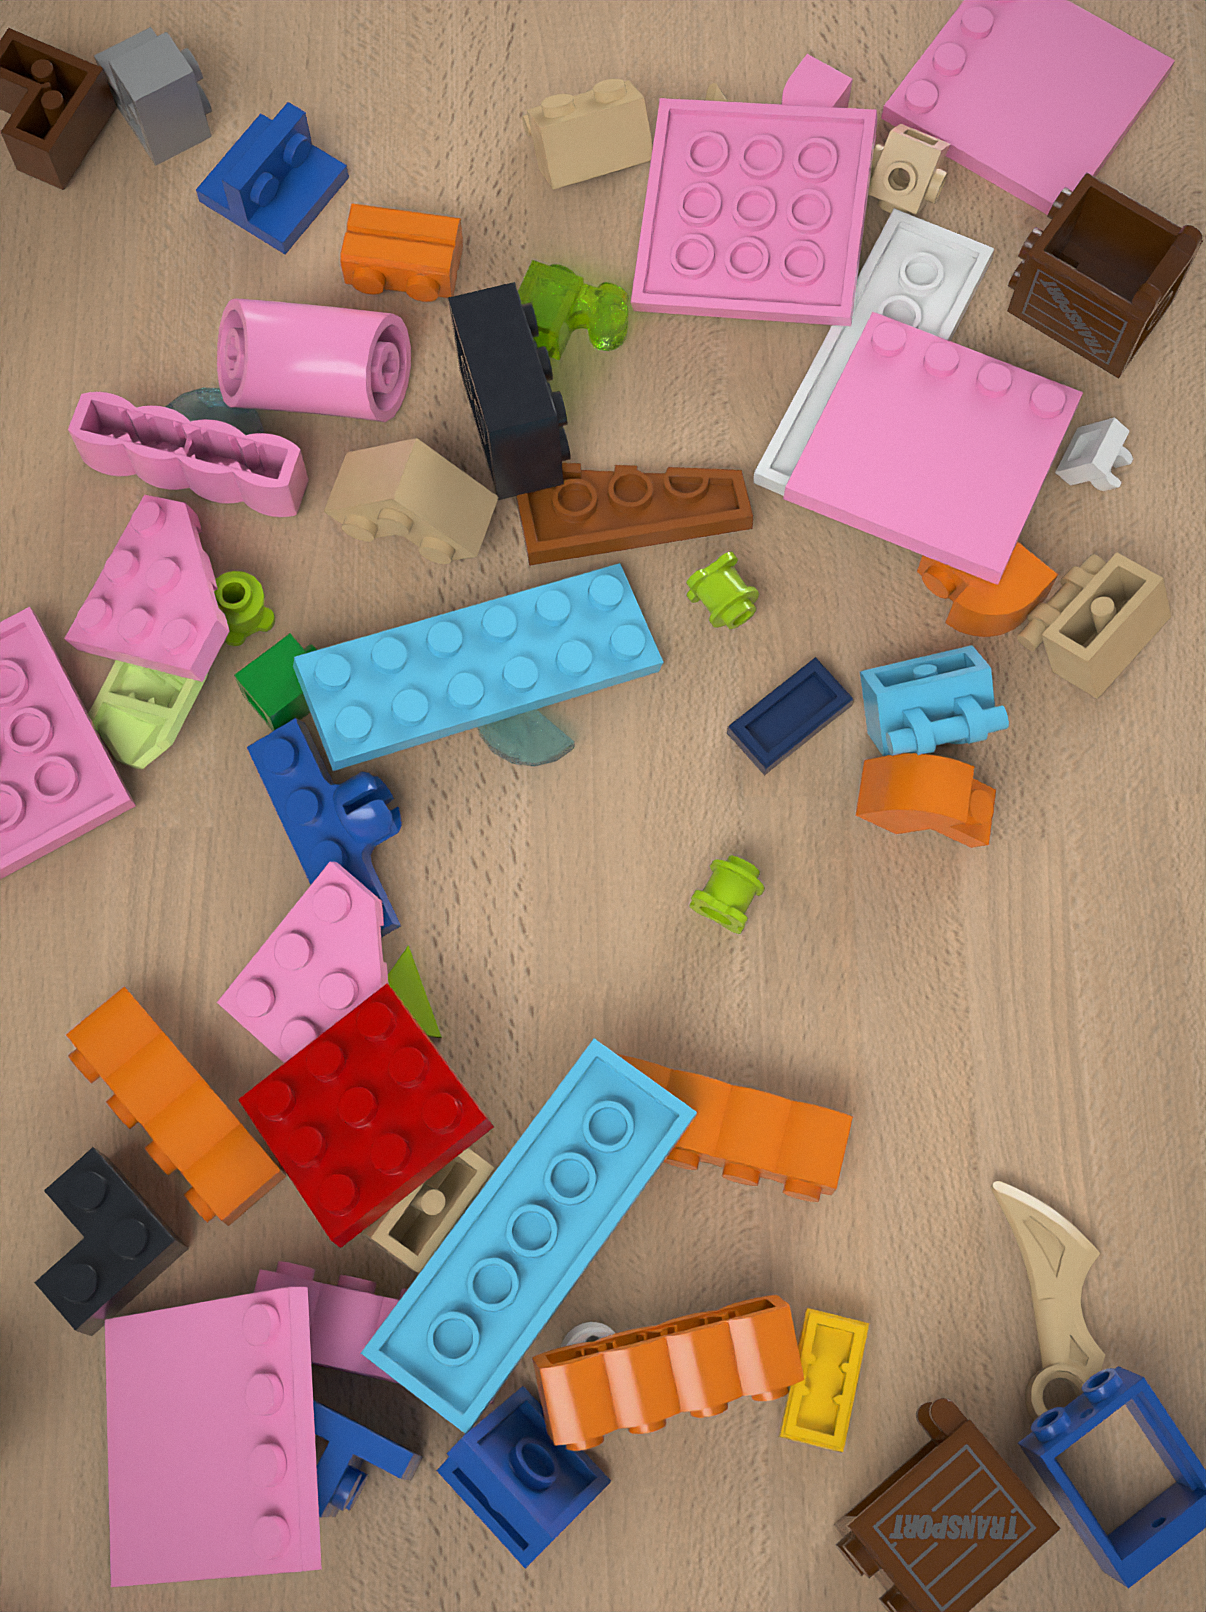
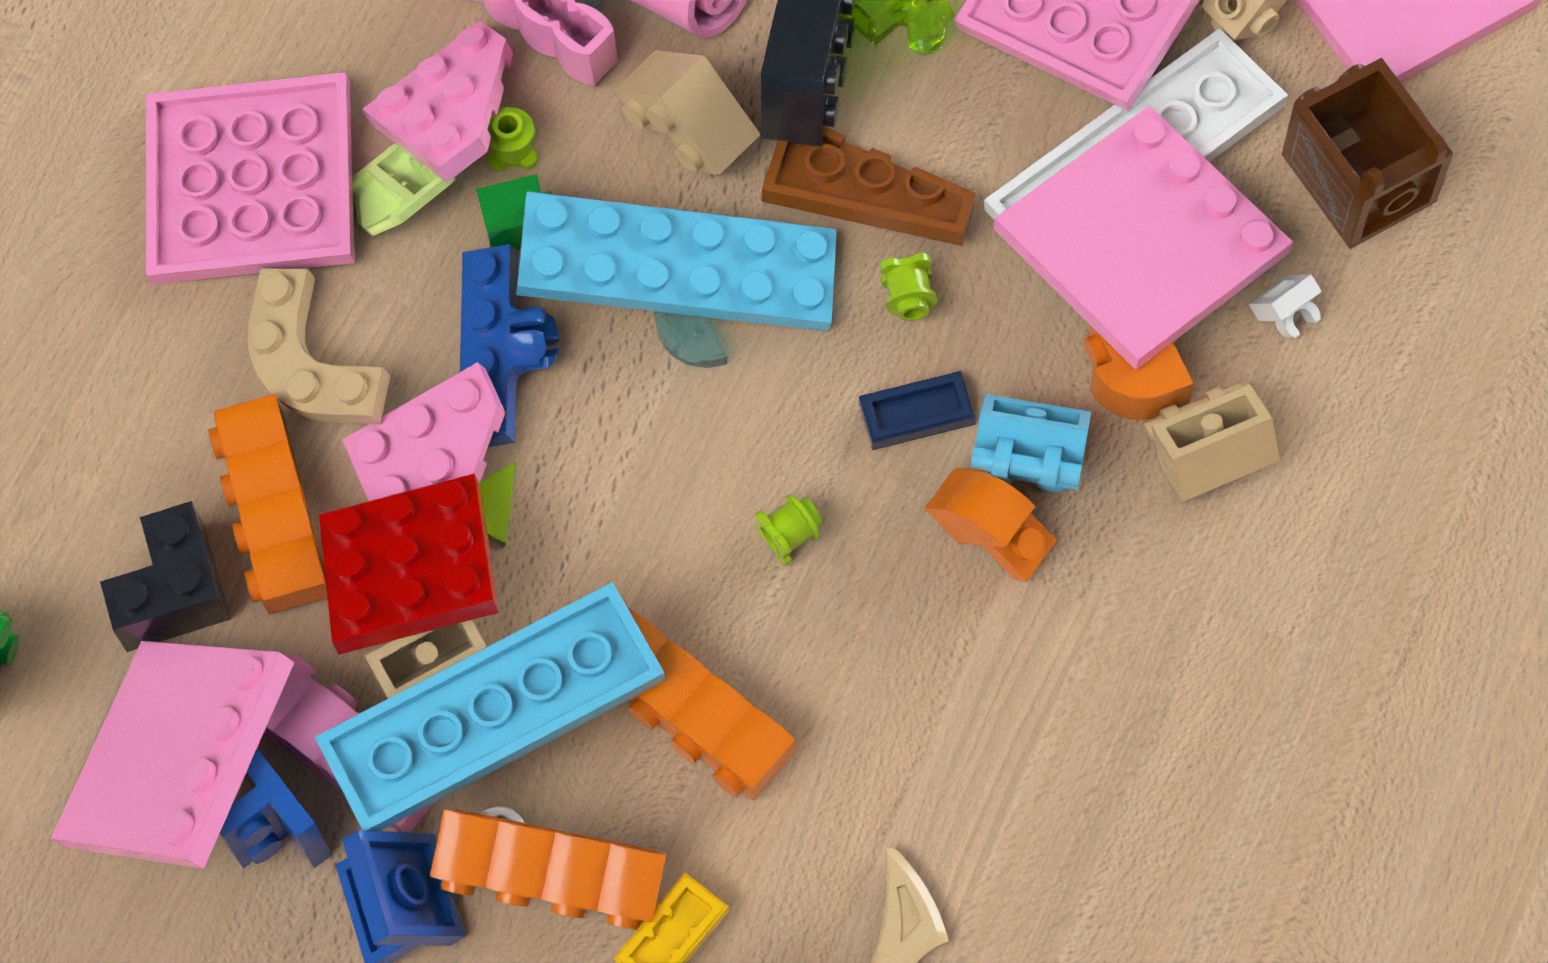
camera: 30 degrees right, 5 degrees down
(119, 950) = (285, 364): none -> tan plate

